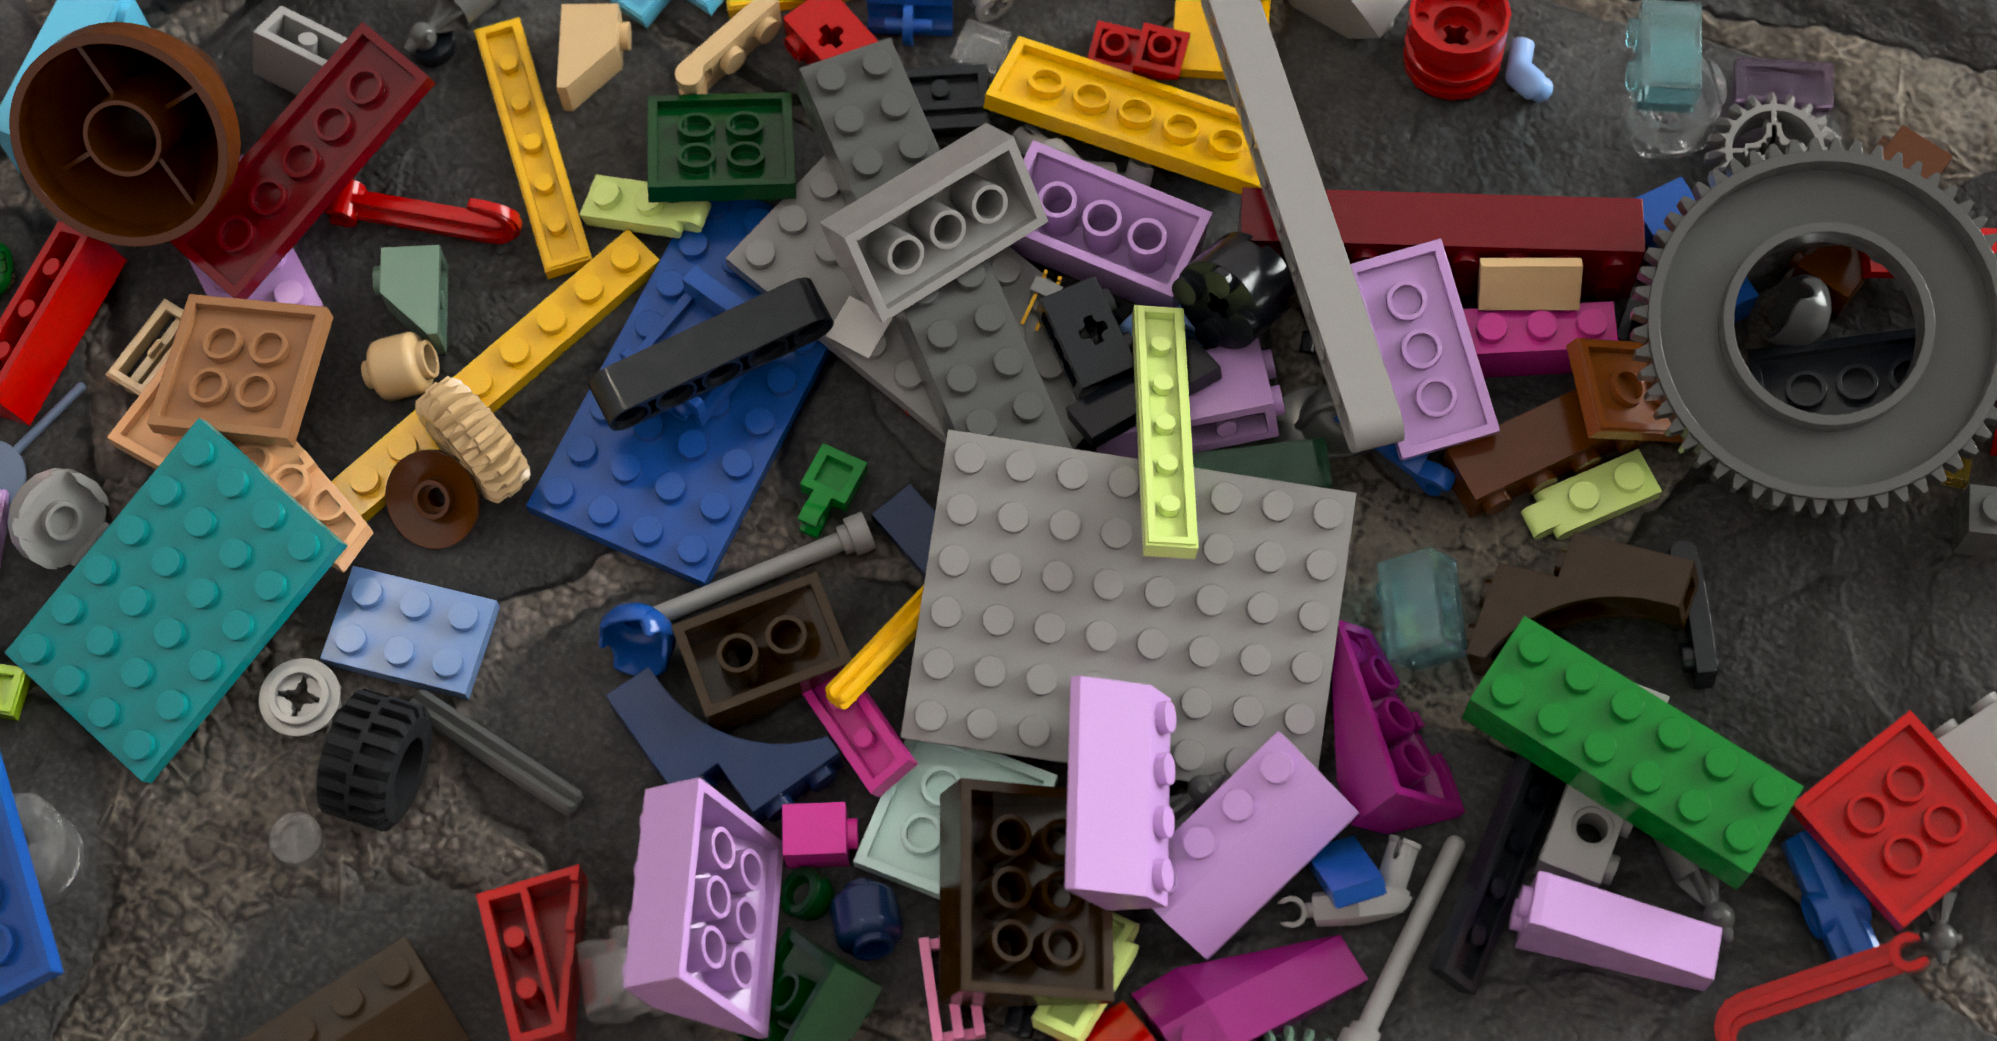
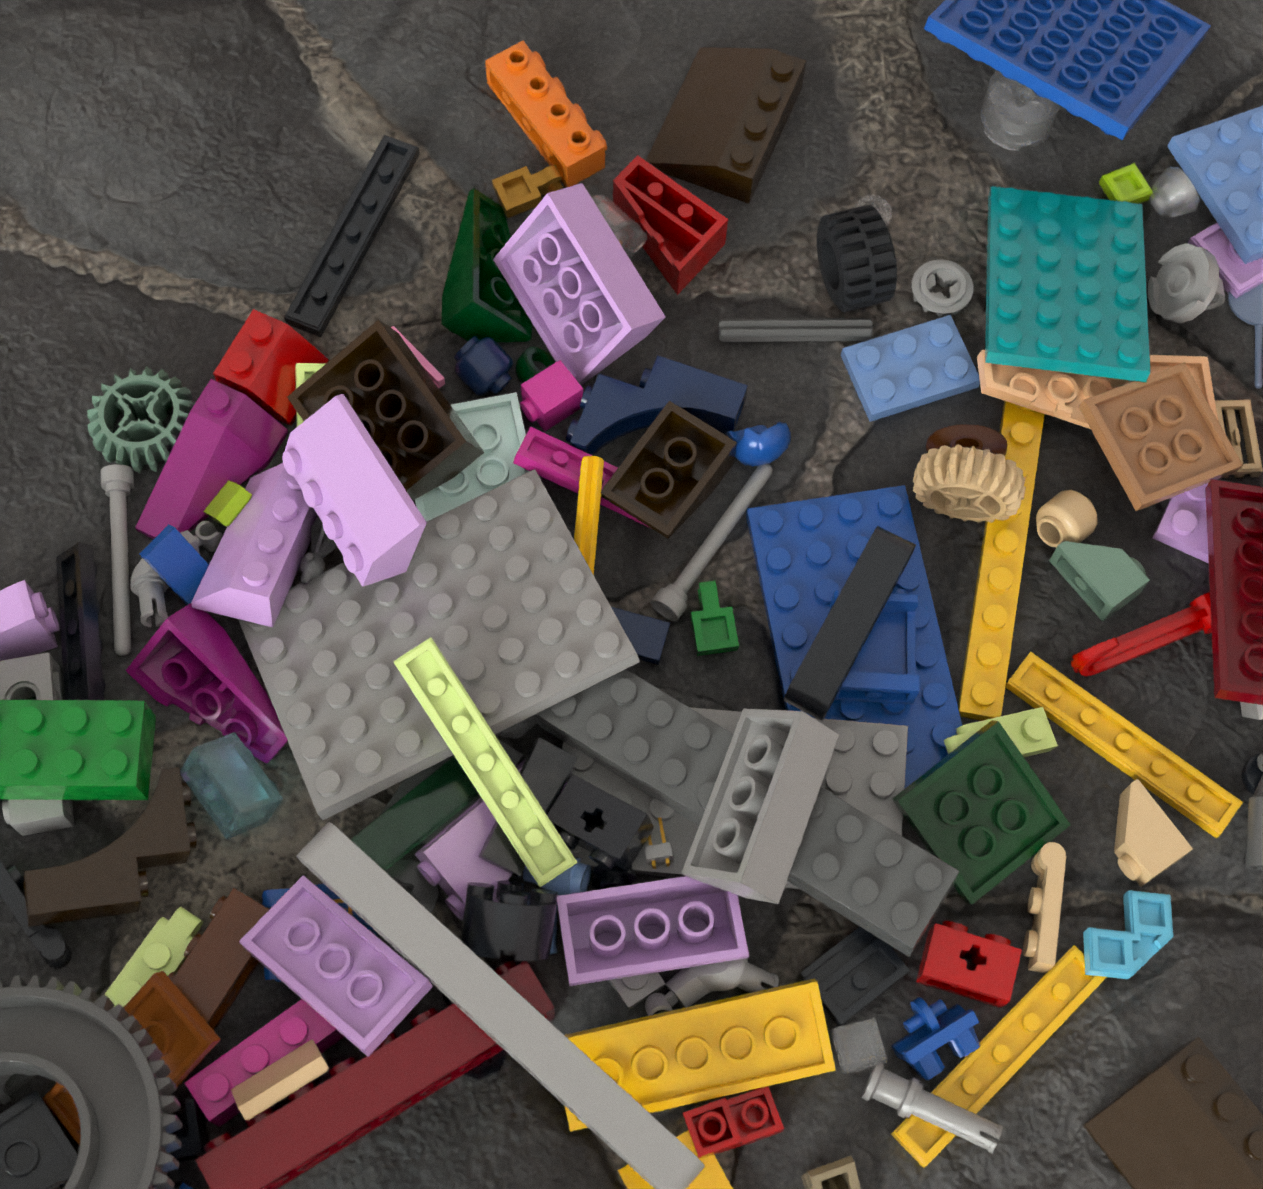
camera: 140 degrees right, 0 degrees up
(1251, 929) = (228, 503): none -> lime tile

